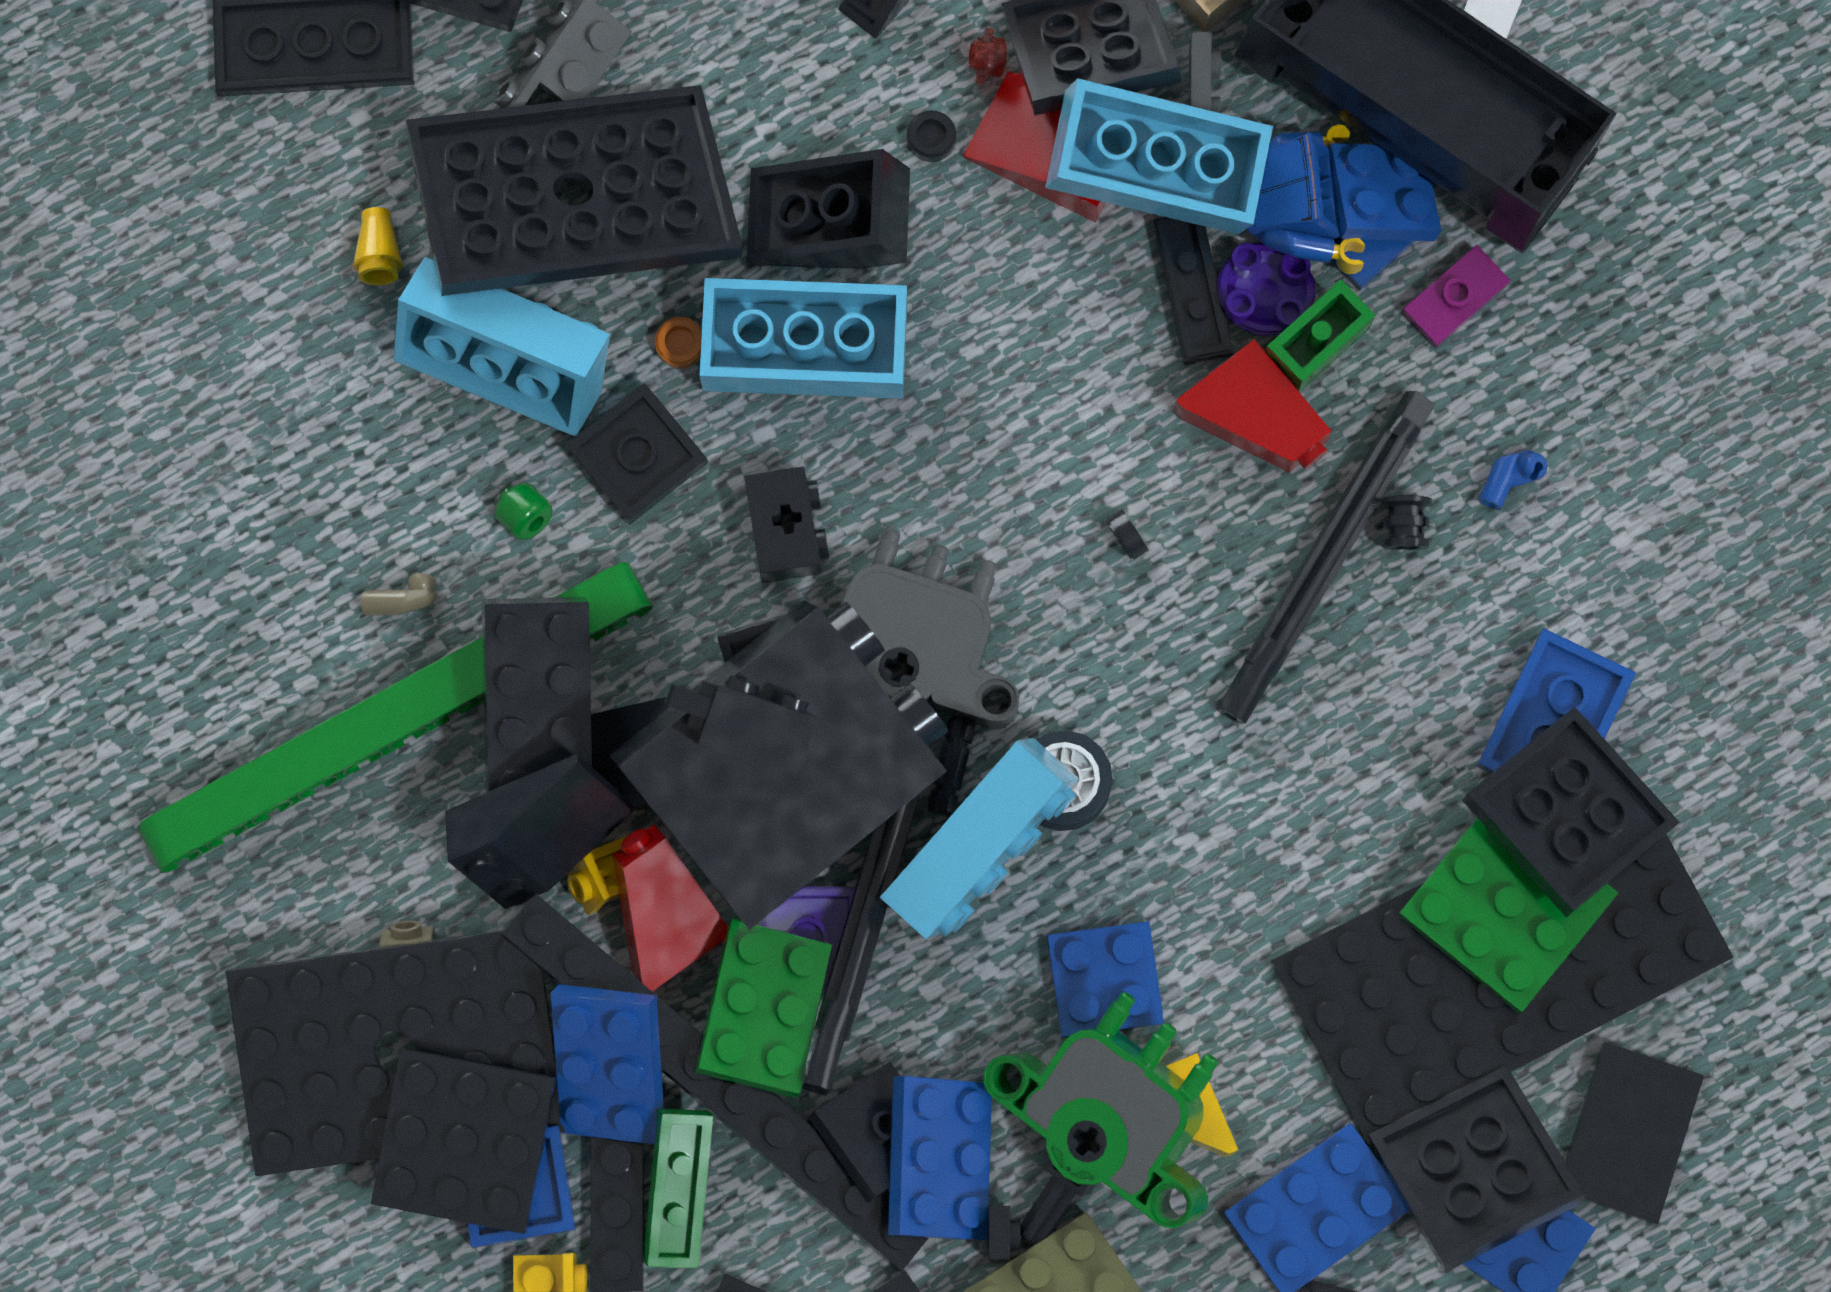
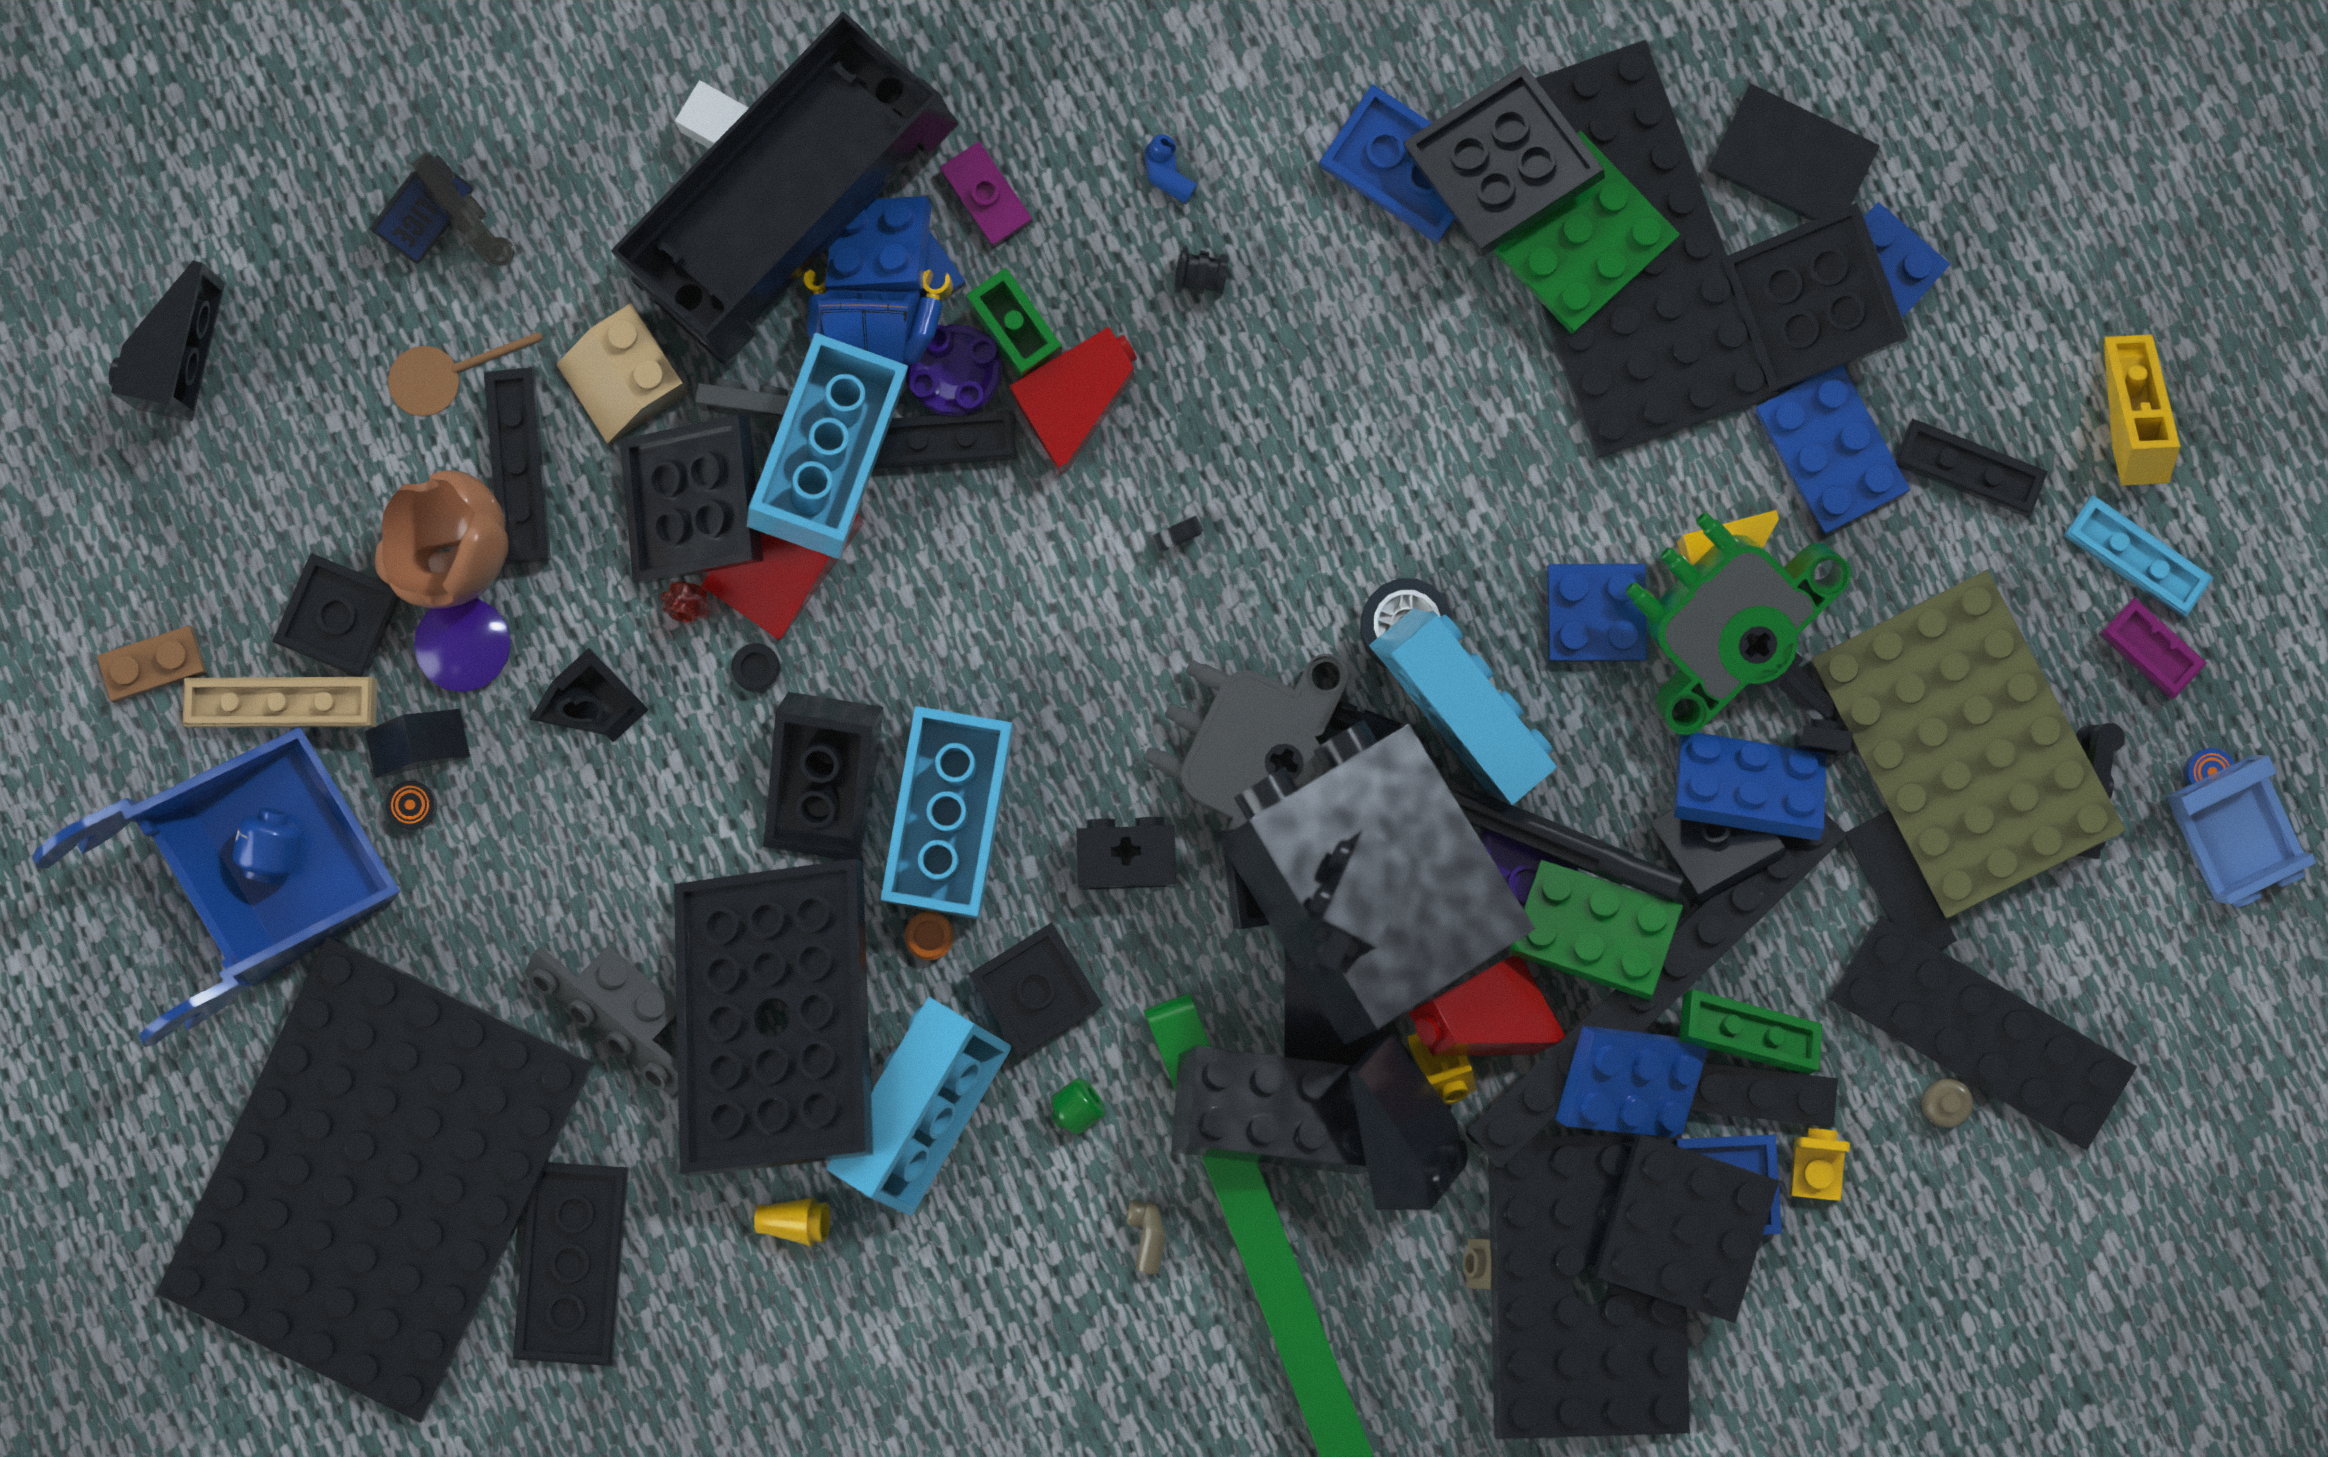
camera: 85 degrees left, 5 degrees up
(1325, 556) = (1222, 352): black piece -> none

